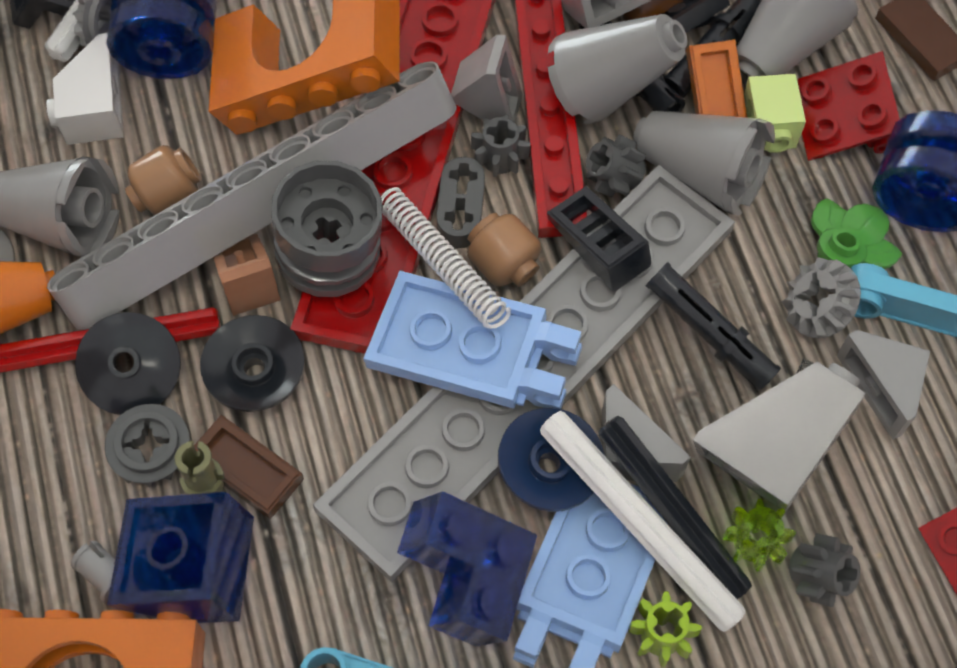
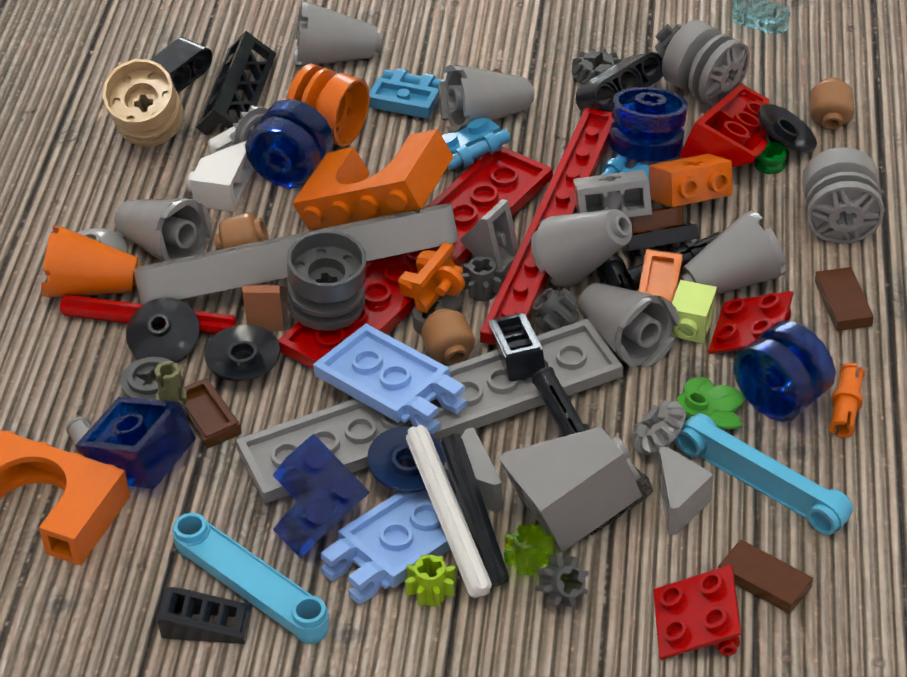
camera: 25 degrees right, 20 degrees down
(454, 268) = (396, 320): white piece -> none
(455, 169) = (435, 278): none -> orange hips

